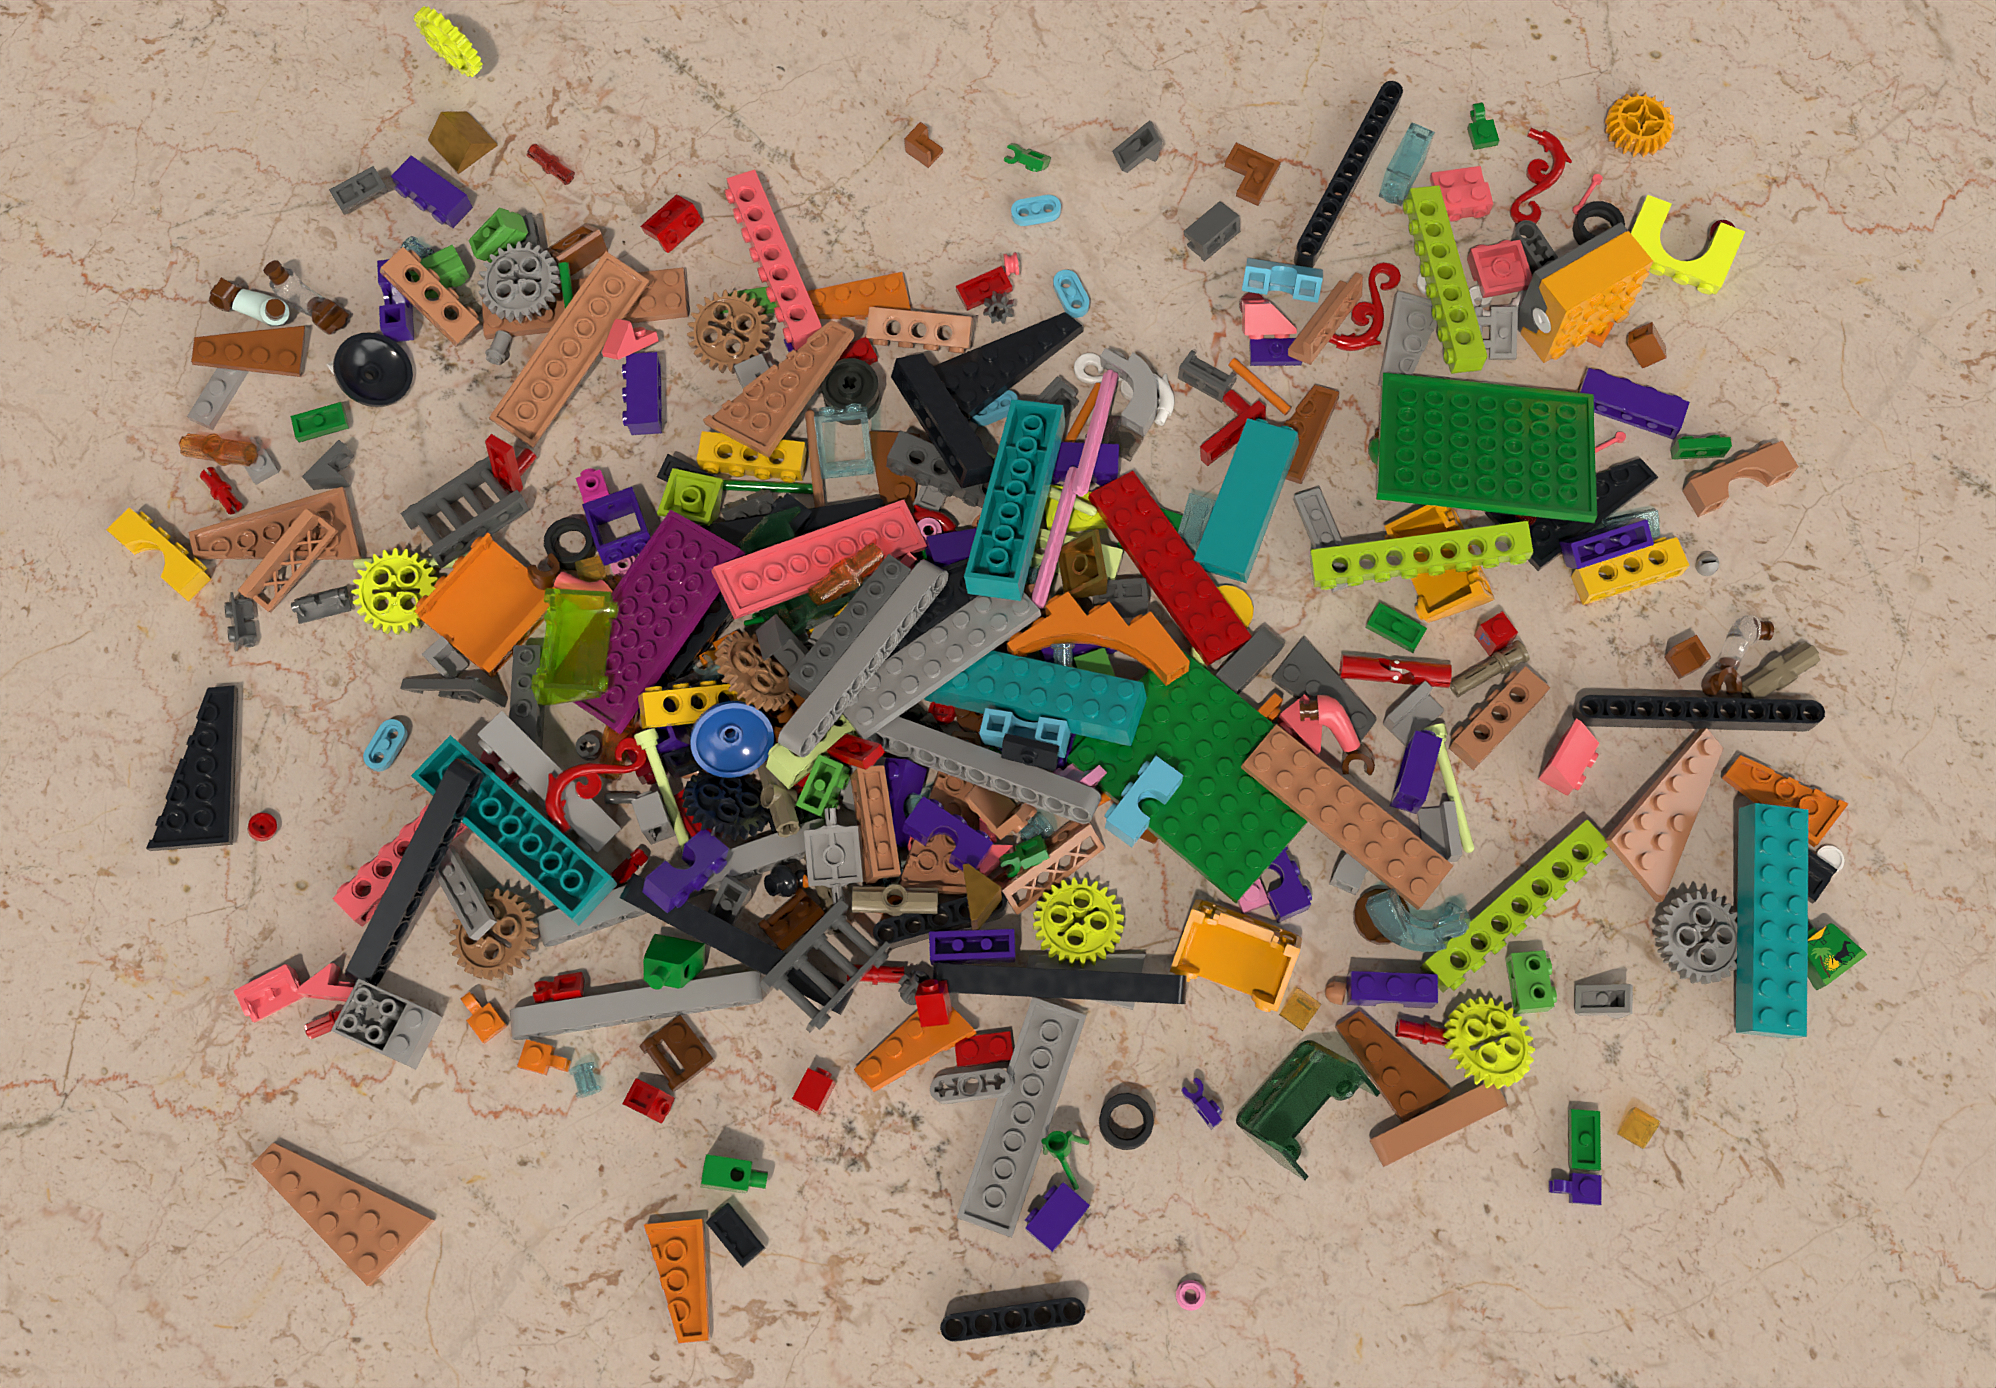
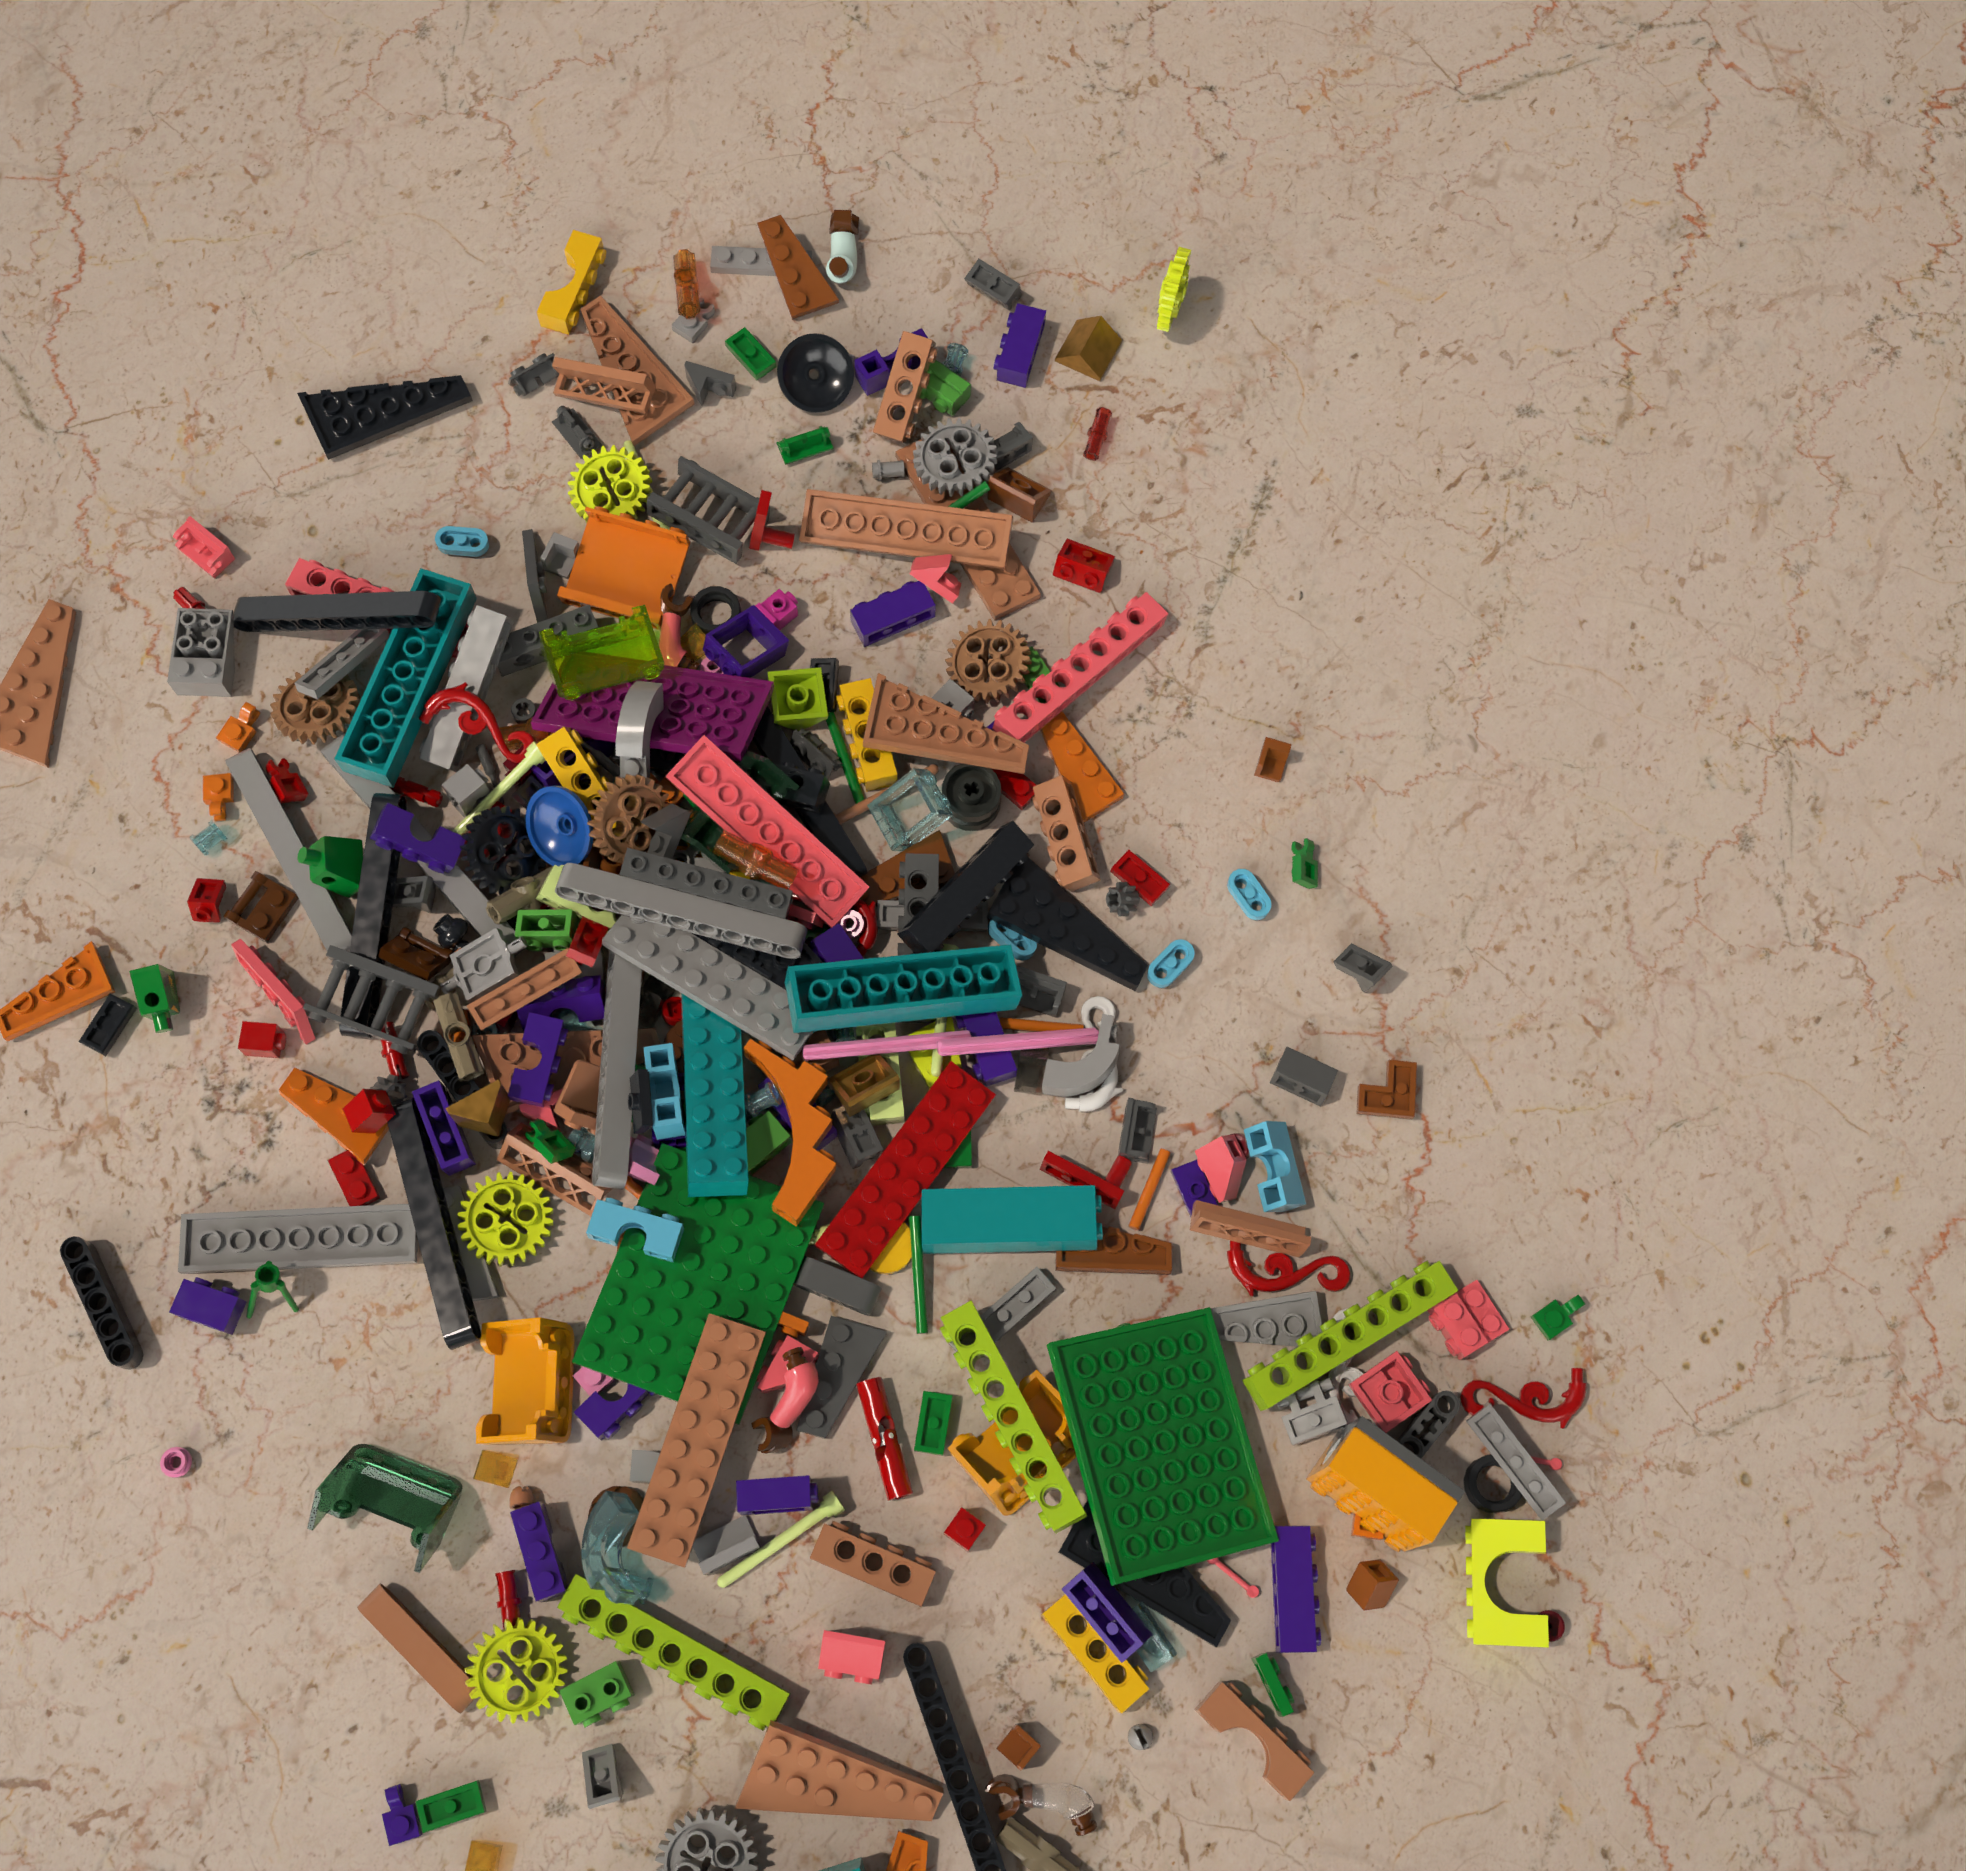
camera: 60 degrees right, 0 degrees up
(221, 490) = (652, 304): red pin -> none
(262, 827) = (351, 475): red tile -> none
(297, 295) = (866, 285): piece -> none
(325, 987) = (223, 589): coral slope -> none
(437, 408) = (805, 445): none -> green hinge
(496, 233) = (997, 417): bright green brick -> none
(671, 632) = (635, 726): none -> light grey arch
(769, 1061) = (276, 990): none -> coral wing
(952, 1096) = (308, 1191): light grey beam -> none
(1011, 264) = (1177, 893): coral bush -> none
(1141, 1105) = (303, 1328): black tyre -> none
(1195, 519) = (968, 1175): clear light blue plate -> none
(1207, 1110) = (359, 1411): dark purple plate -> none
(1263, 592) = (918, 1274): none -> green bar
(1352, 165) = (1447, 1192): black beam -> none
(1394, 1072) = (457, 1590): dark orange wing -> none
(1406, 164) = (1467, 1246): clear light blue window -> none
(1413, 714) = (845, 1475): light grey panel -> none
(1499, 663) = (936, 1546): dark tan pin -> none
(1590, 198) = (1515, 1461): none -> light grey panel
(1634, 112) = (1644, 1499): light orange gear -> none

